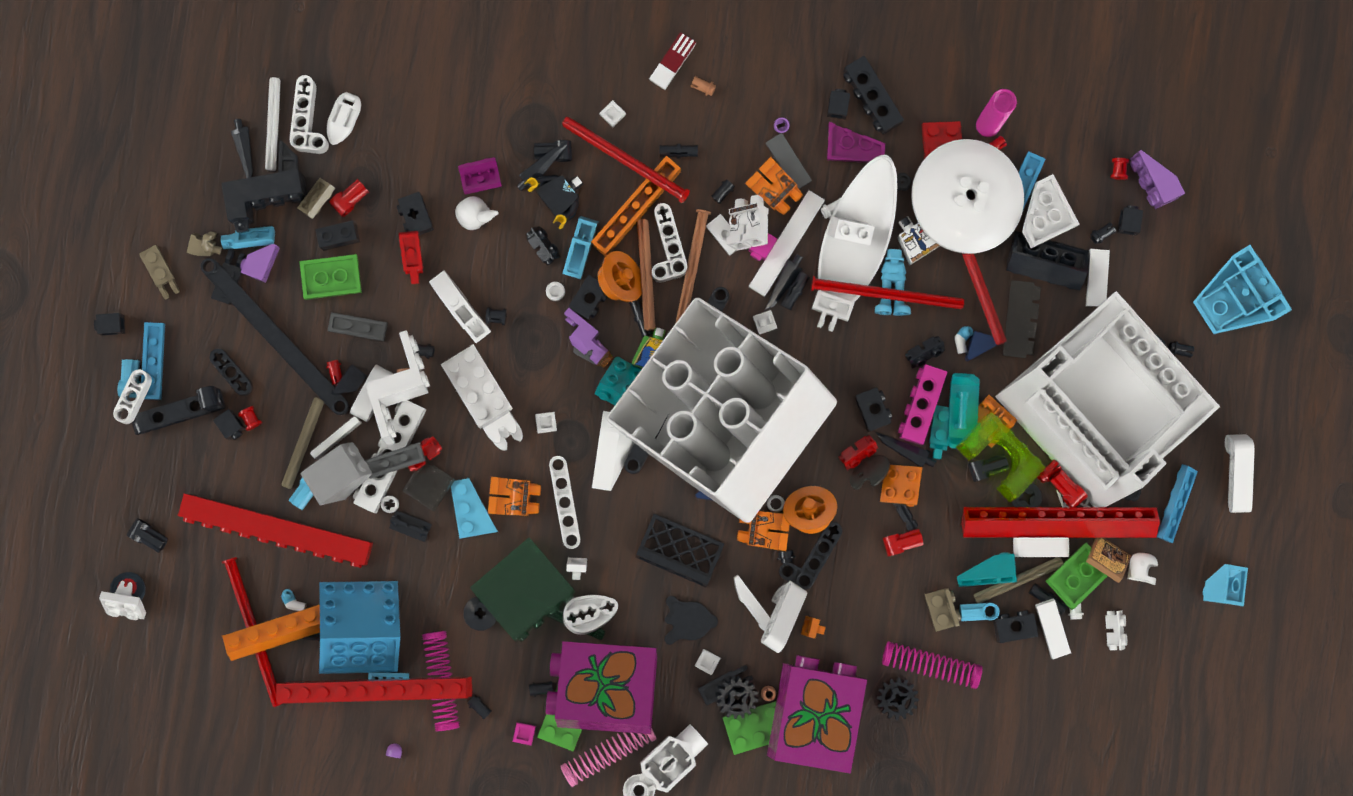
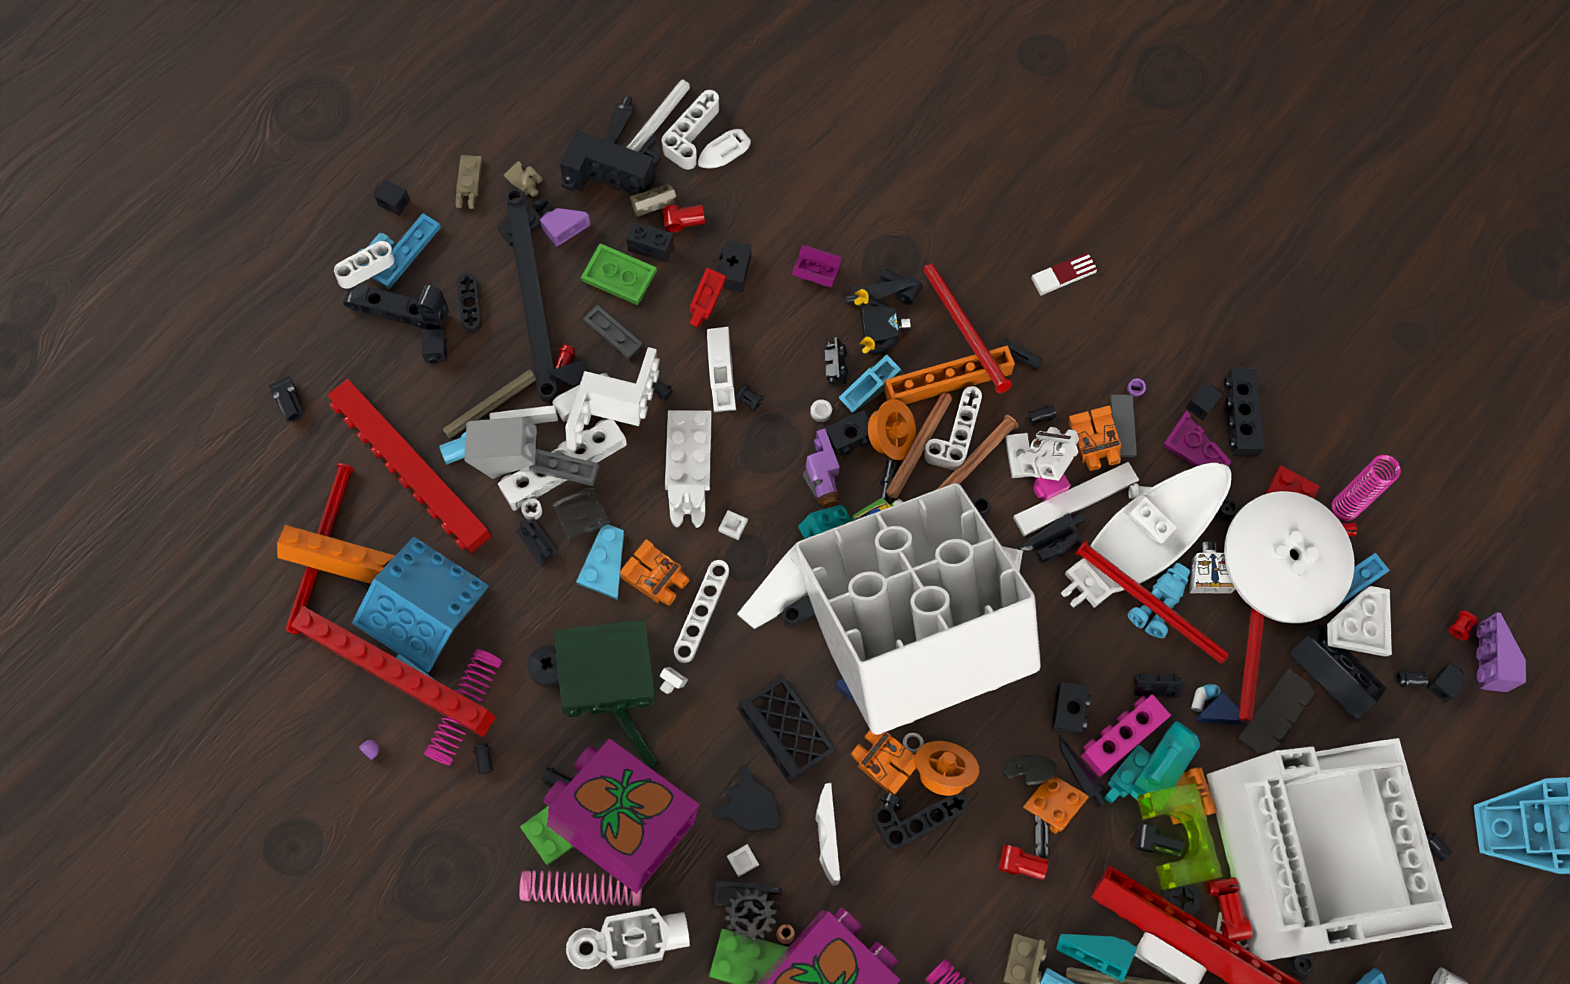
camera: 30 degrees right, 15 degrees down
(125, 597) = (224, 440): white plate -> none
(249, 418) = (456, 353): red bush -> none
(255, 237) = (567, 198): medium azure hinge -> none
(291, 602) = (375, 538): arm -> none
(430, 448) = (605, 480): red hinge -> none
(473, 213) = (789, 294): white hair -> none
(524, 733) = (509, 815): dark pink tile -> none
(582, 604) = (648, 744): white piece -> none
(612, 113) = (977, 287): white tile -> none
(703, 86) = (1083, 314): nougat pin -> none
(788, 603) = (851, 856): white beam -> none
(812, 627) = (873, 892): orange tile -> none
(852, 458) = (1040, 743): red hinge -> none
(1097, 277) = (1382, 717): white tile -> none

